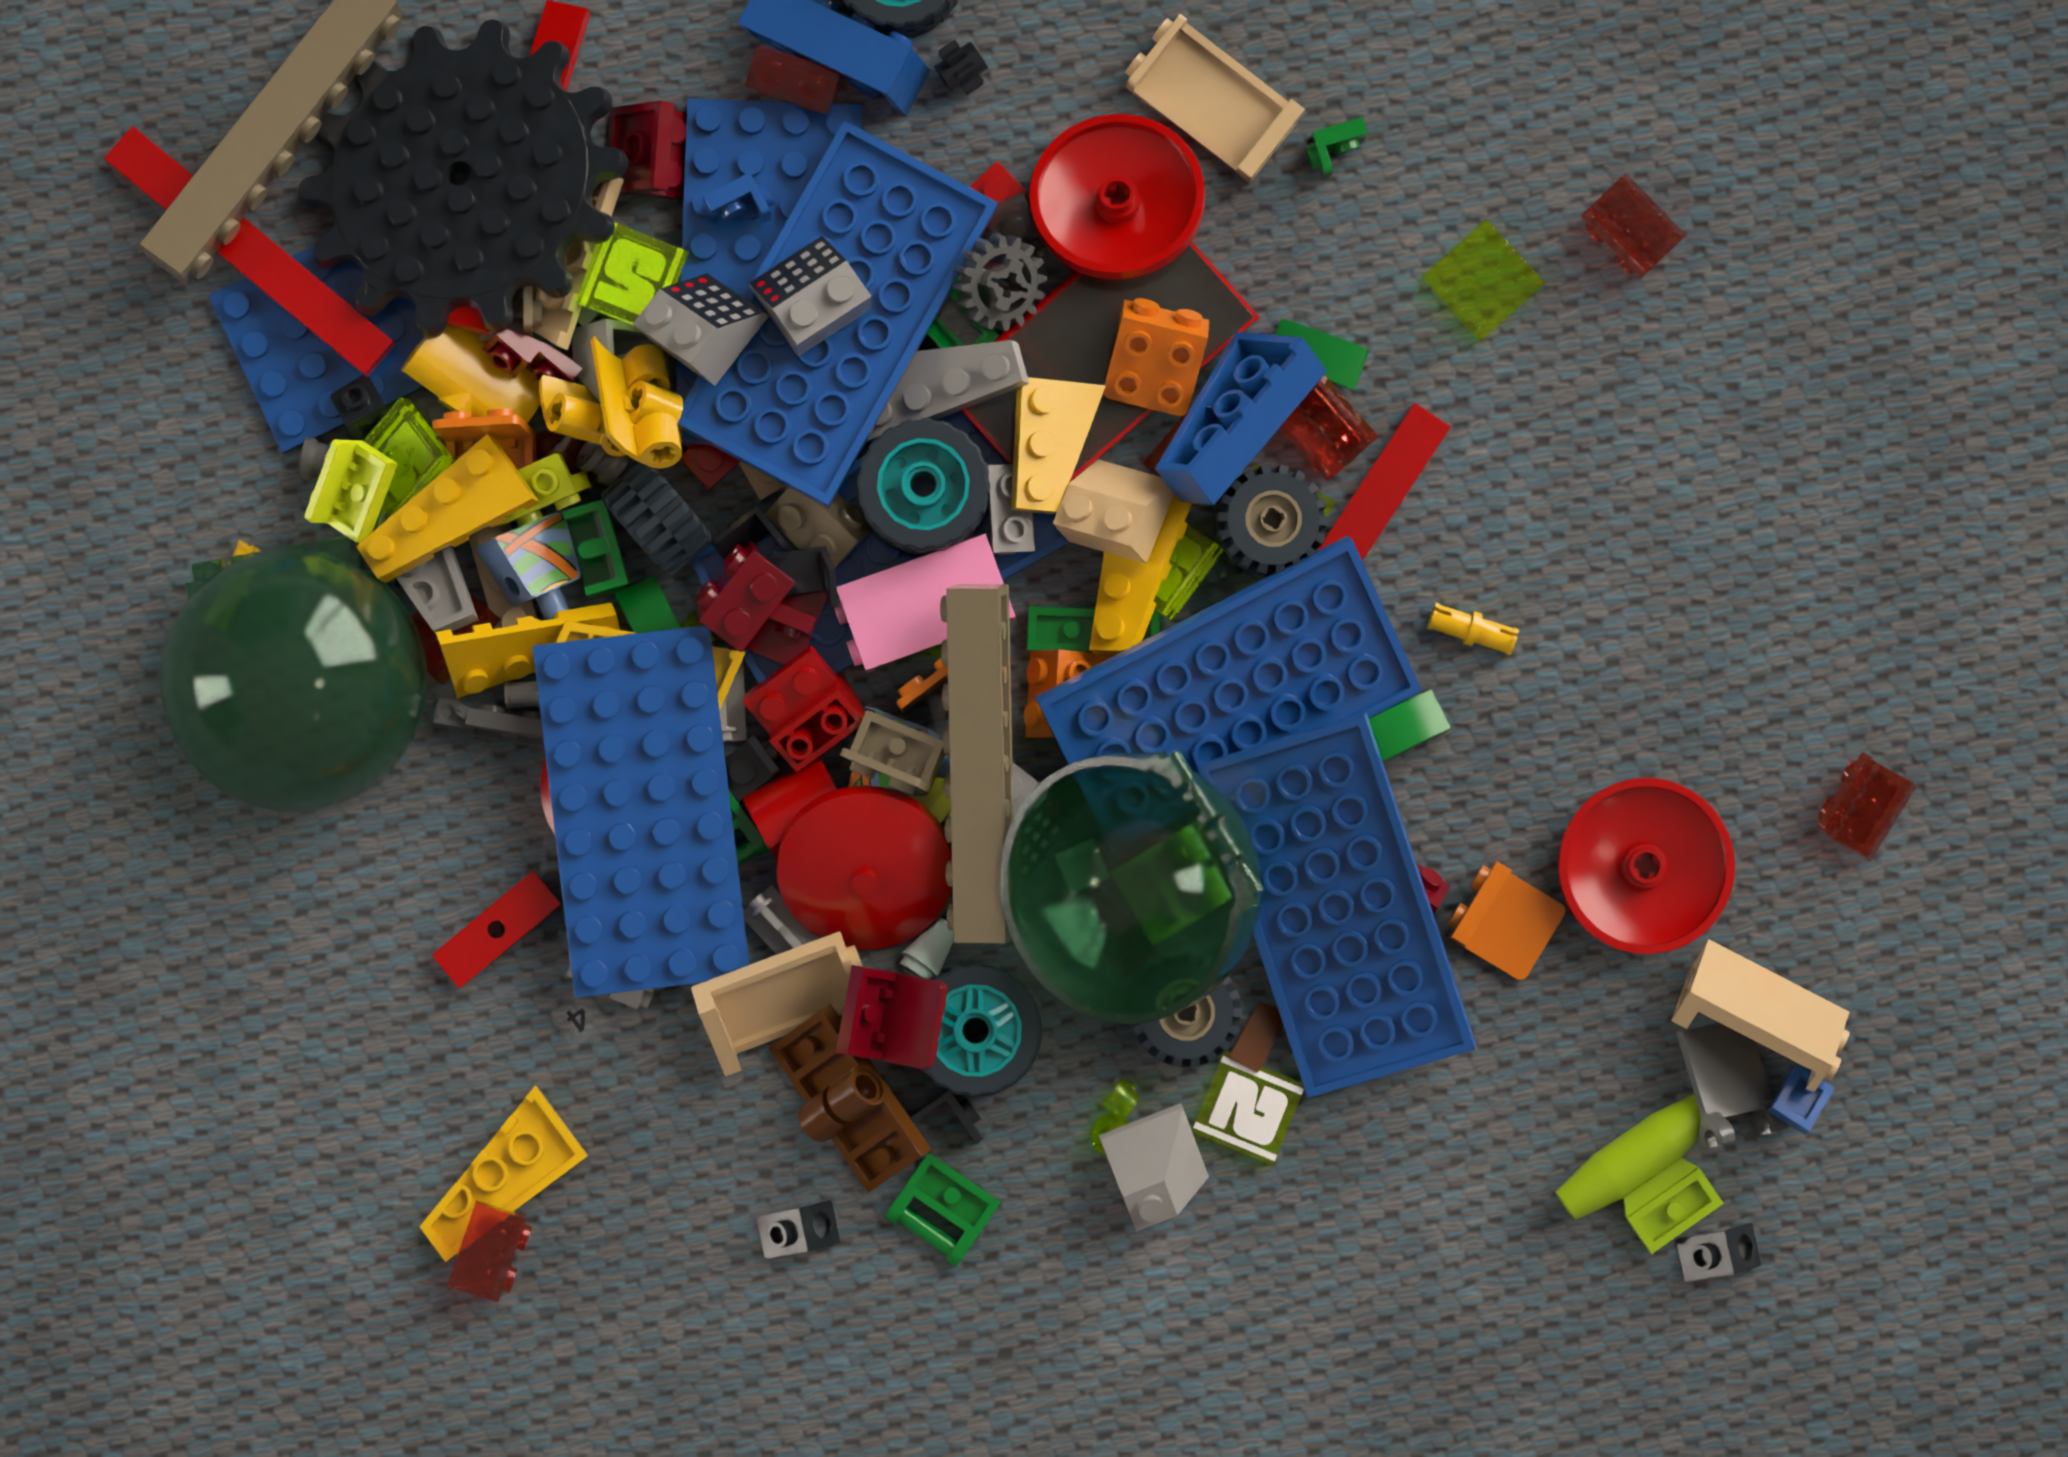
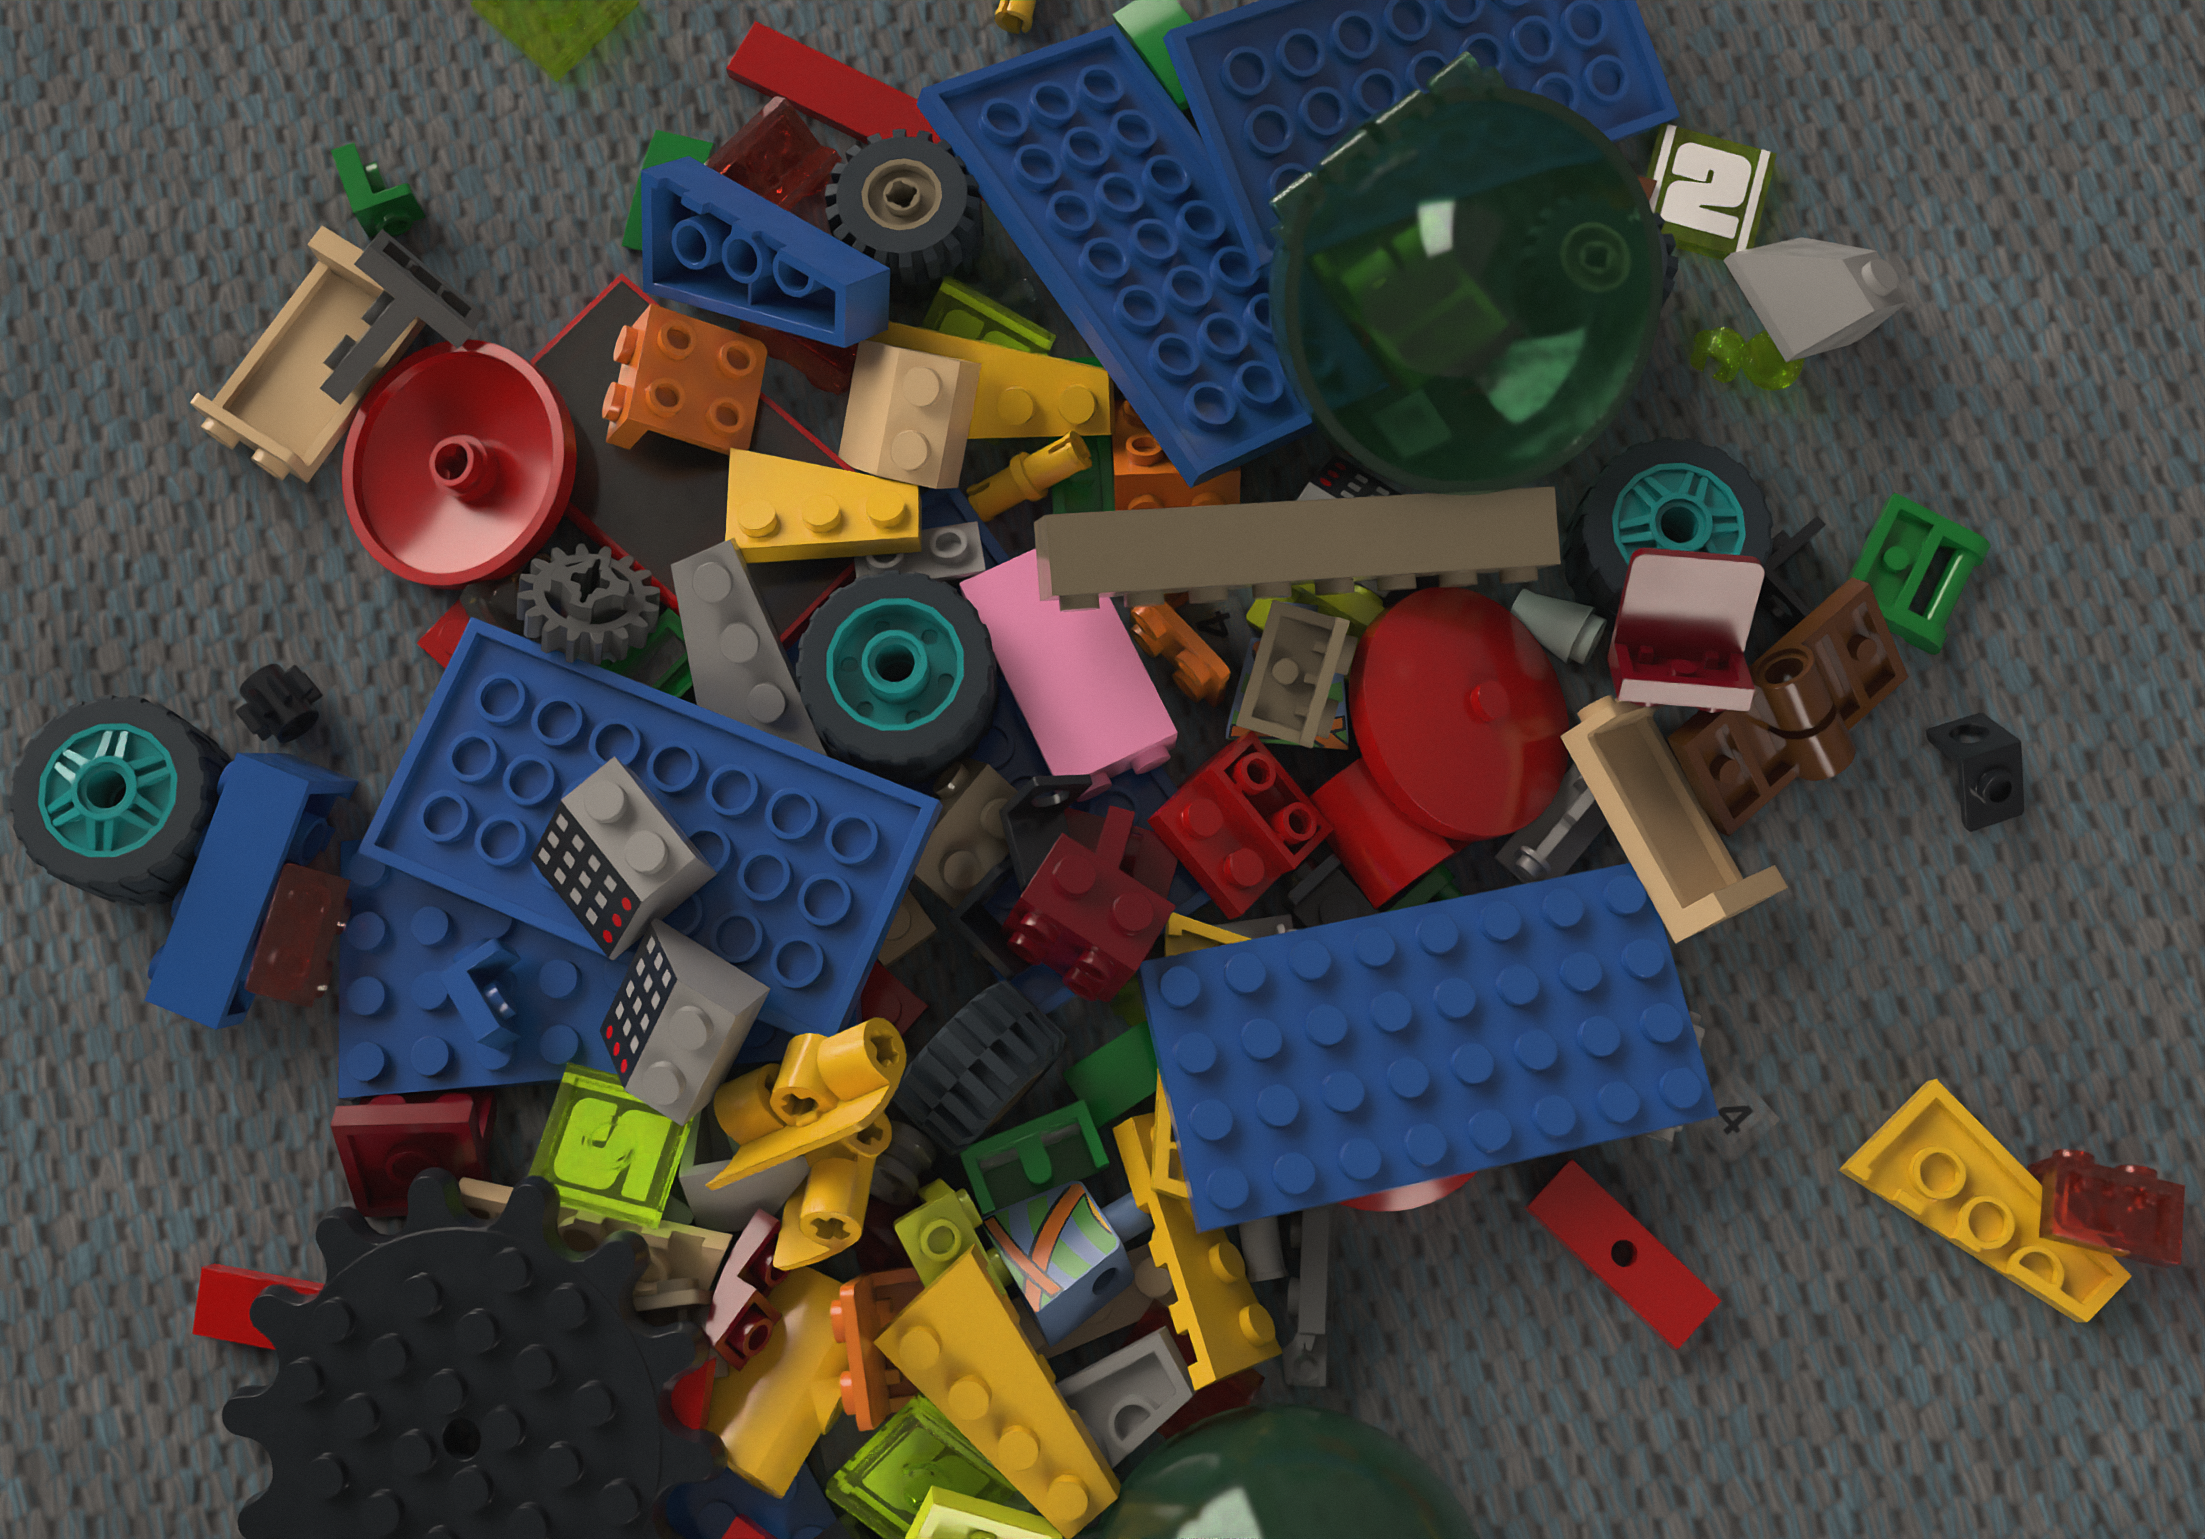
camera: 95 degrees left, 10 degrees down
(1070, 592) = (1029, 476): none -> yellow pin
(1233, 166) = (408, 292): none -> dark grey bracket

